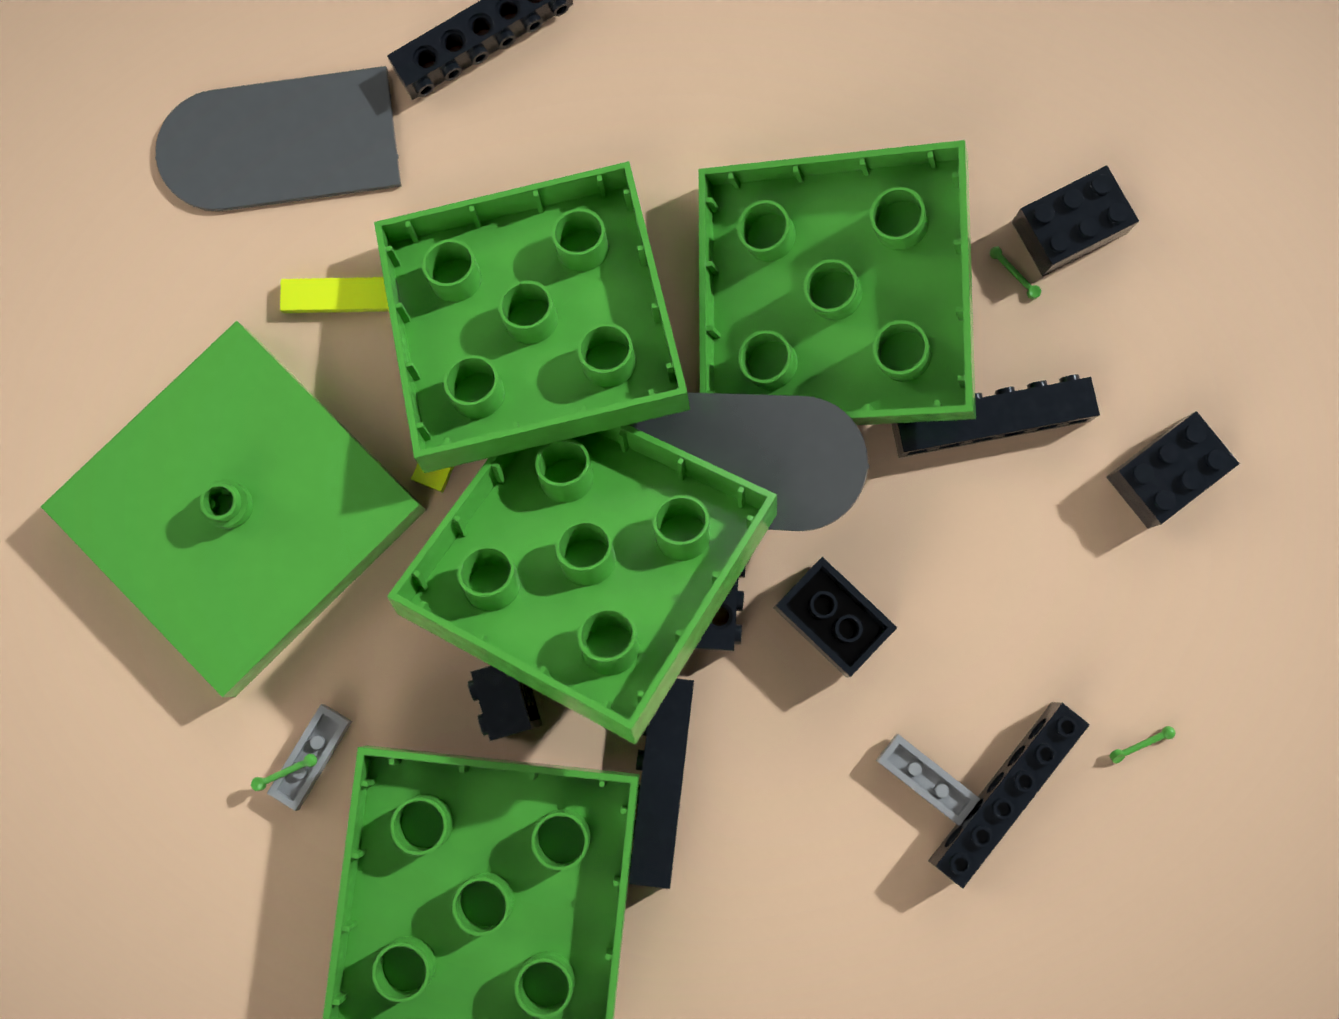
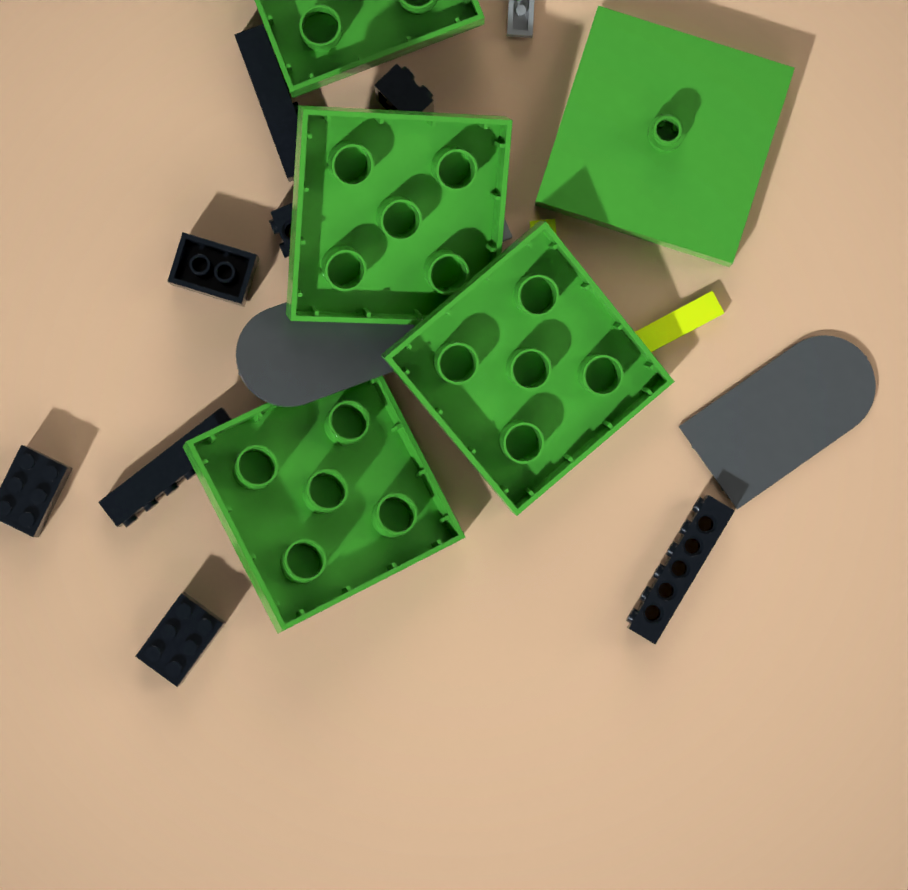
camera: 150 degrees right, 5 degrees up
(928, 779) = (97, 194): light grey plate -> none
(1009, 793) = (39, 211): black brick -> none
(1032, 291) = (186, 576): bright green hinge -> none

